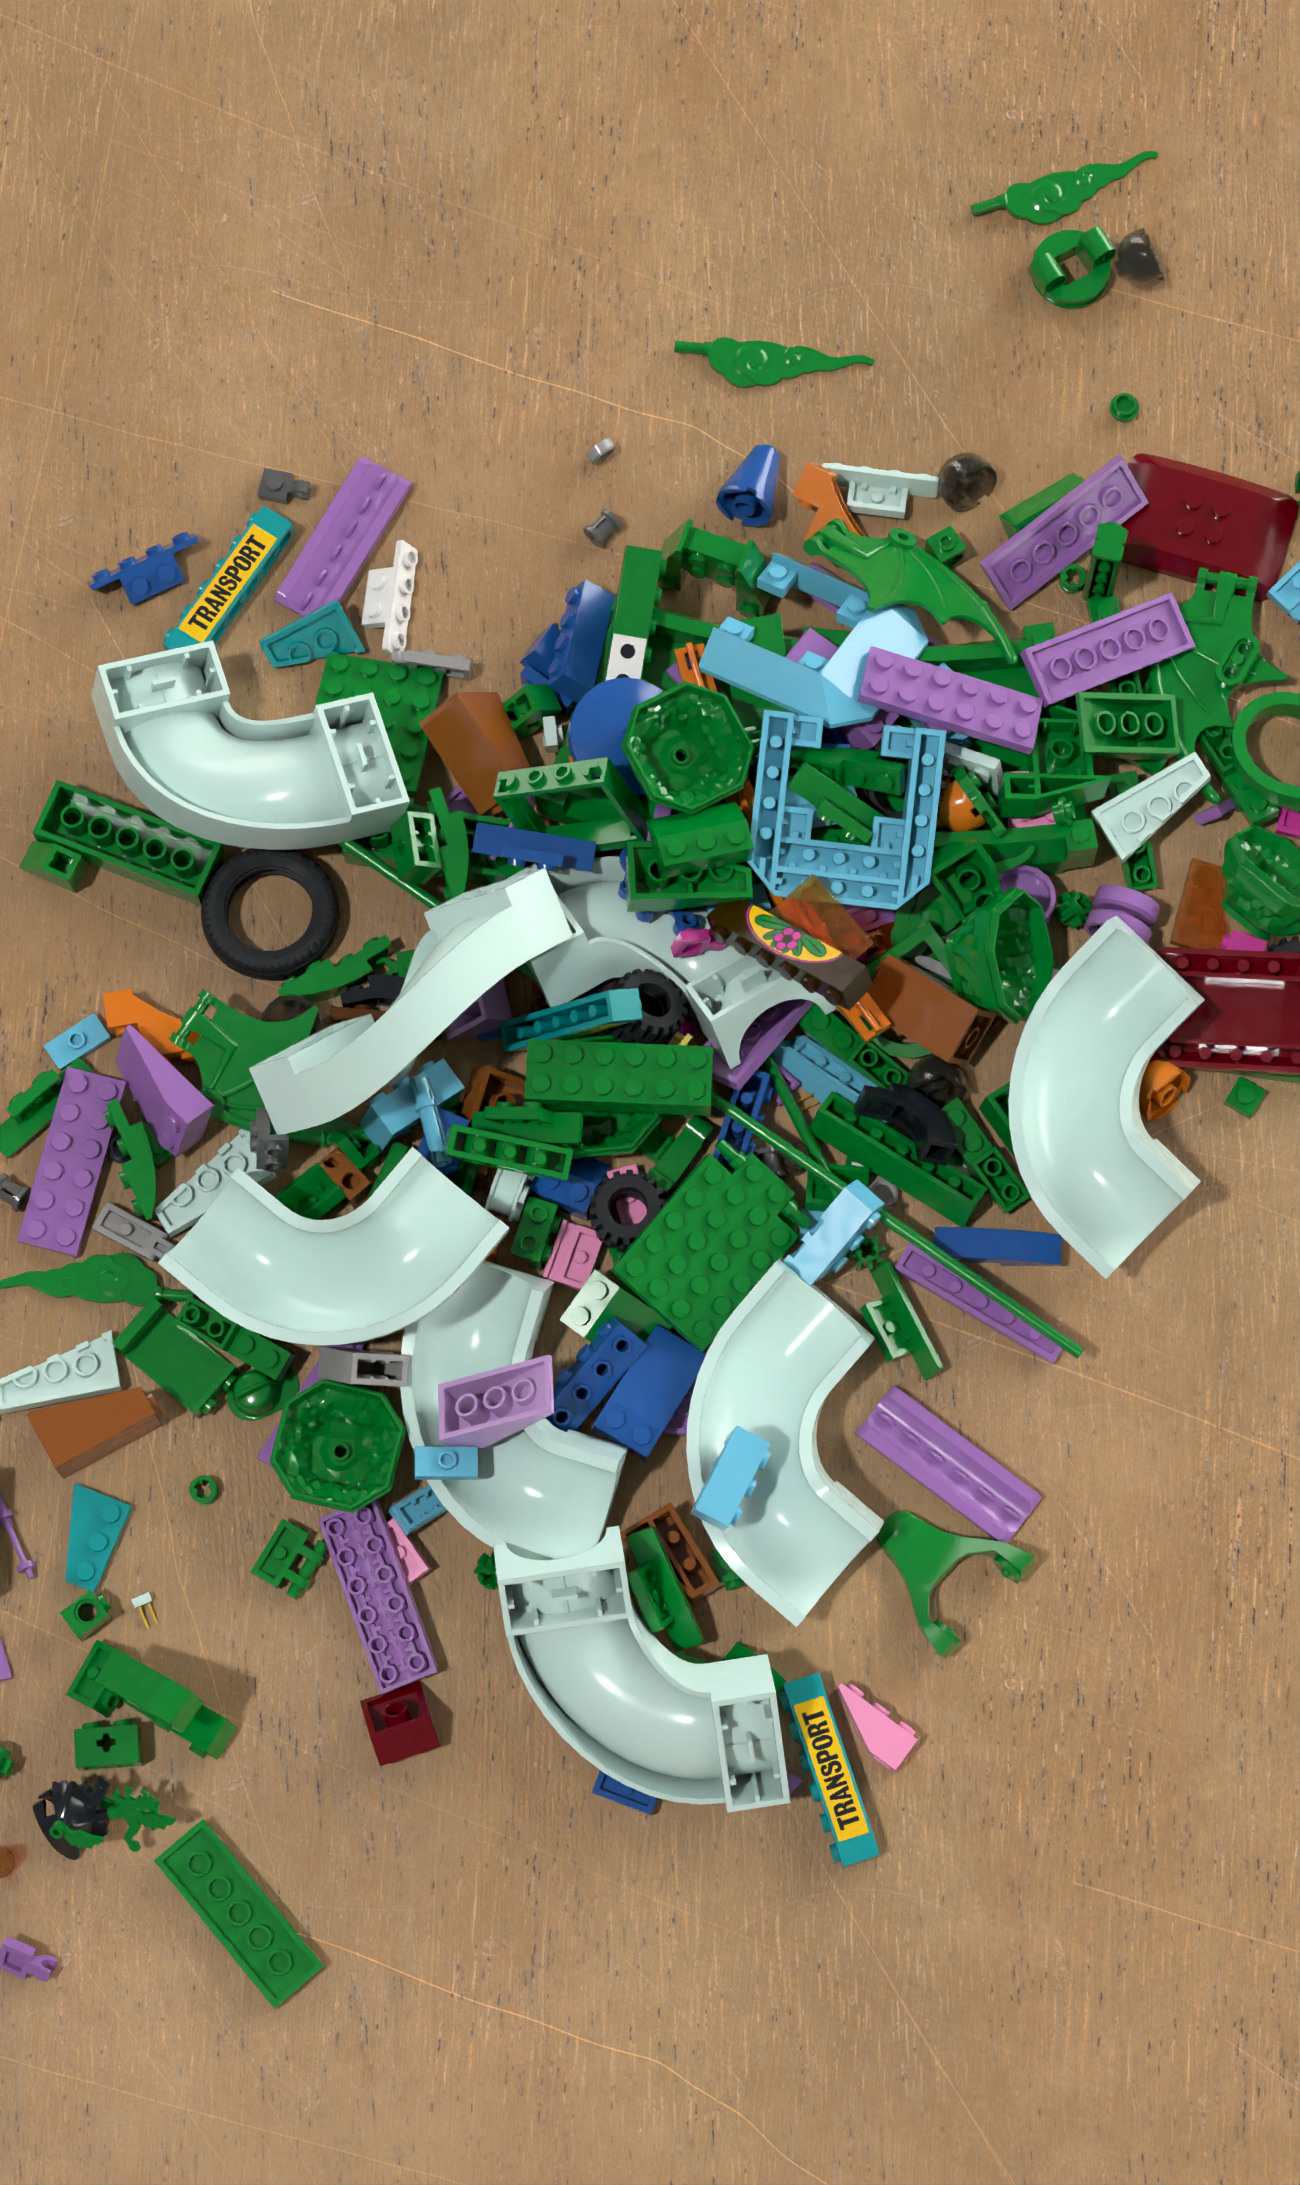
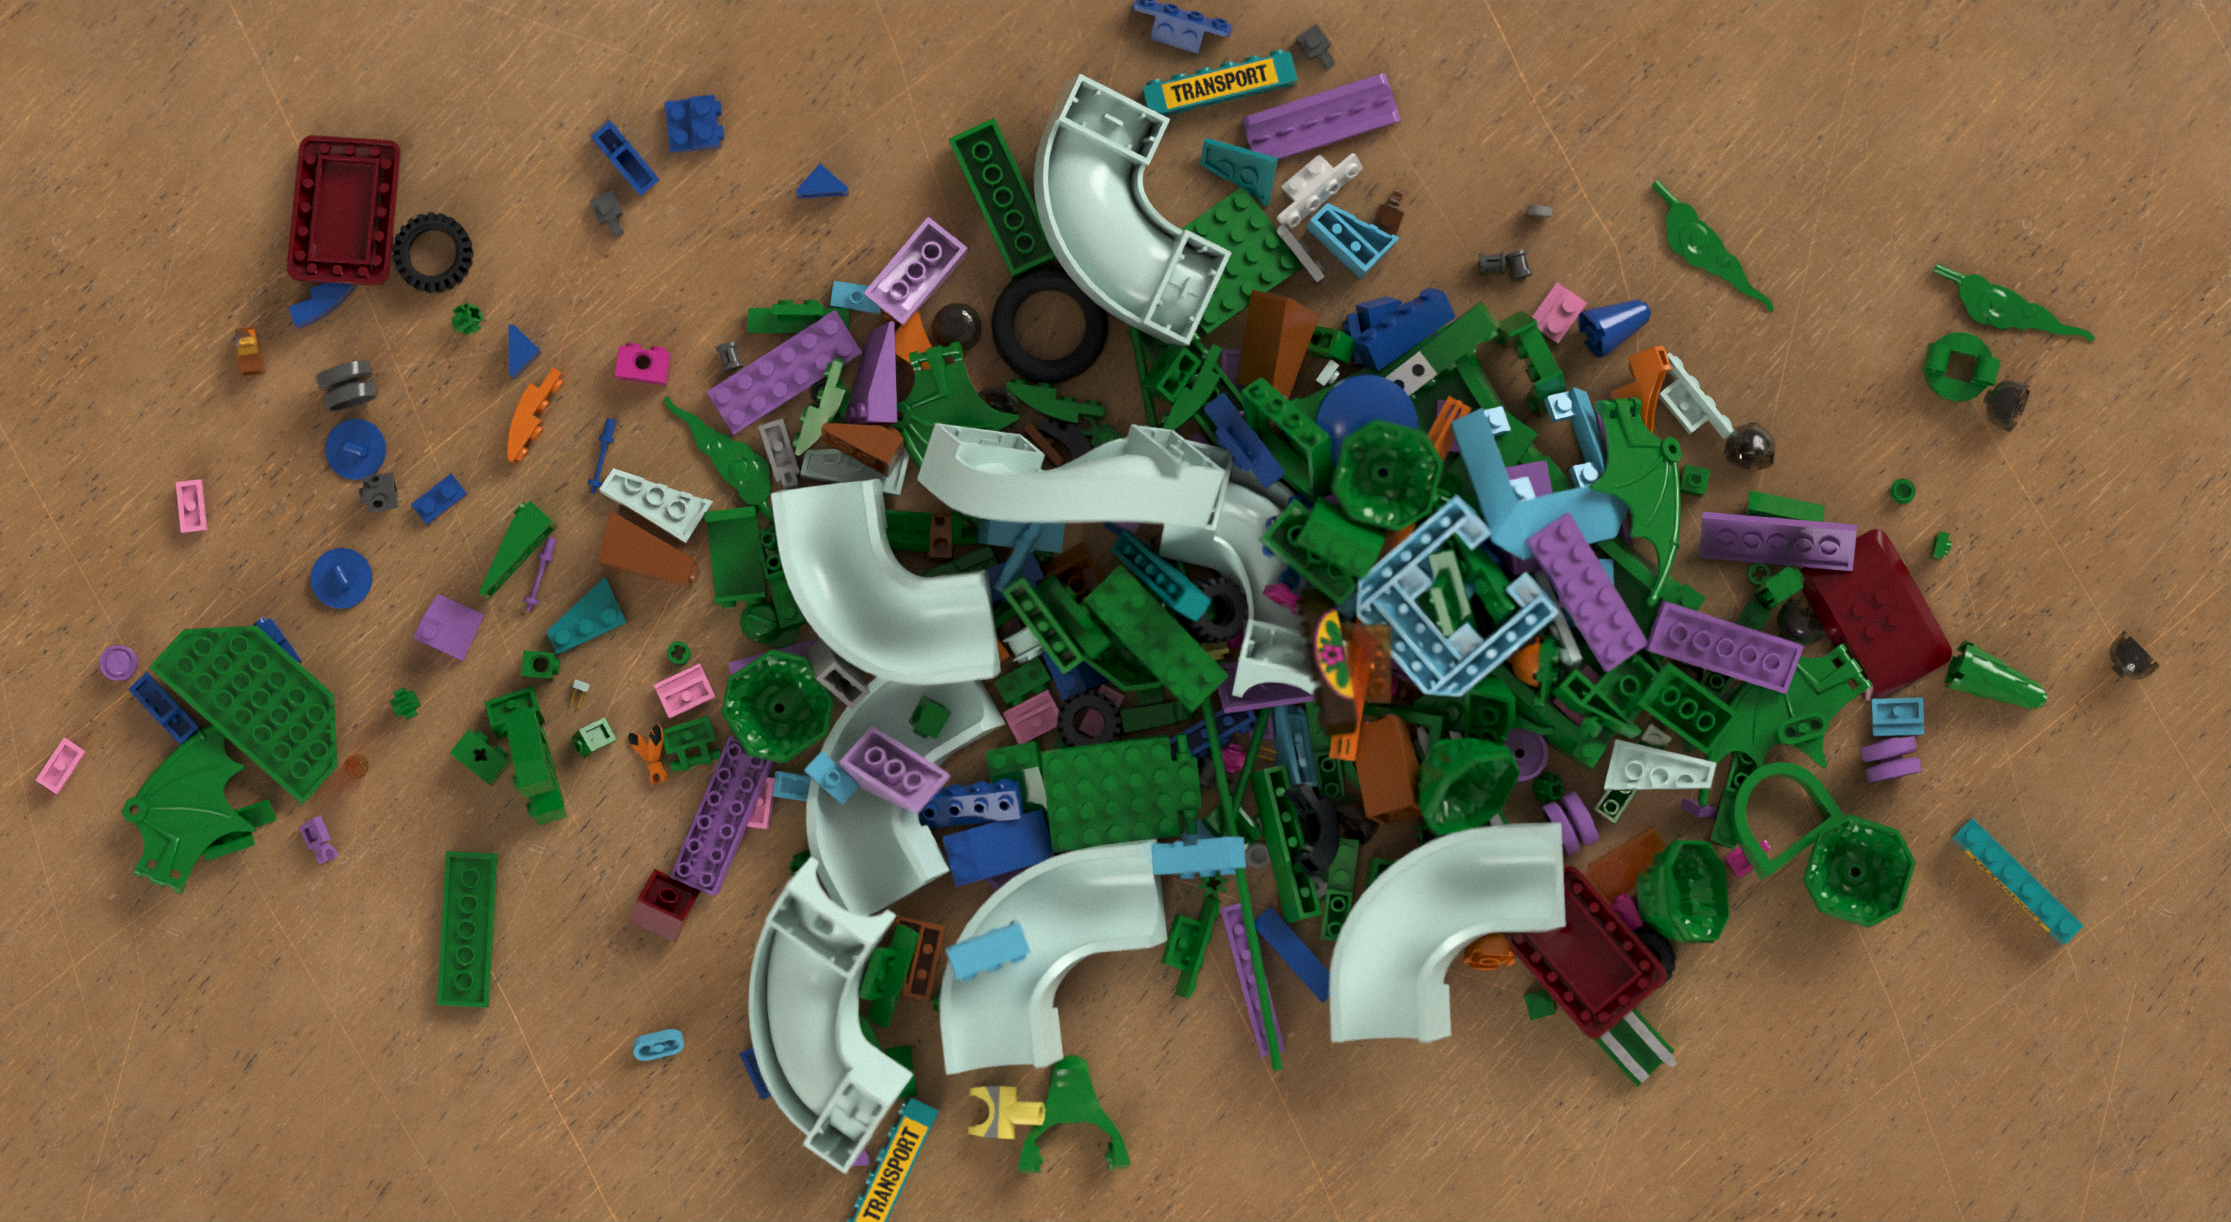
camera: 40 degrees right, 10 degrees up
(54, 864) = (944, 168): green slope -> none
(85, 1813) = (423, 791): helmet -> none
(109, 966) = (916, 271): none -> lavender slope
(184, 982) = (957, 323): none -> clear smoke cylinder
(195, 1635) = (593, 737): none -> bracket
(203, 1151) = (868, 444): none -> dark orange slope
(240, 1517) = (684, 691): none -> bright pink plate
(260, 1599) = (650, 752): none -> orange piece
(269, 1149) = (905, 483): flat silver bracket -> none
(462, 612) = (1350, 239): none -> medium azure wedge
(477, 569) = (1388, 217): none -> reddish brown plate
(482, 1334) = (929, 718): none -> green brick
(511, 1853) = (658, 1044): none -> medium azure plate
(627, 509) = (1519, 265): none -> dark grey bush
(698, 507) = (1558, 313): none -> bright pink plate
(782, 1126) = (1233, 758): none -> dark pink gear
(878, 1619) = (1005, 1112): none -> light yellow connector
(881, 1736) = (941, 1183): bright pink slope -> none
(948, 1465) = (1137, 1059): medium lavender plate -> none
(1003, 1047) = (1419, 835): none -> green gear
(1146, 584) = (1799, 624): none -> clear smoke cylinder
(1199, 421) = (1940, 546): none -> green plate

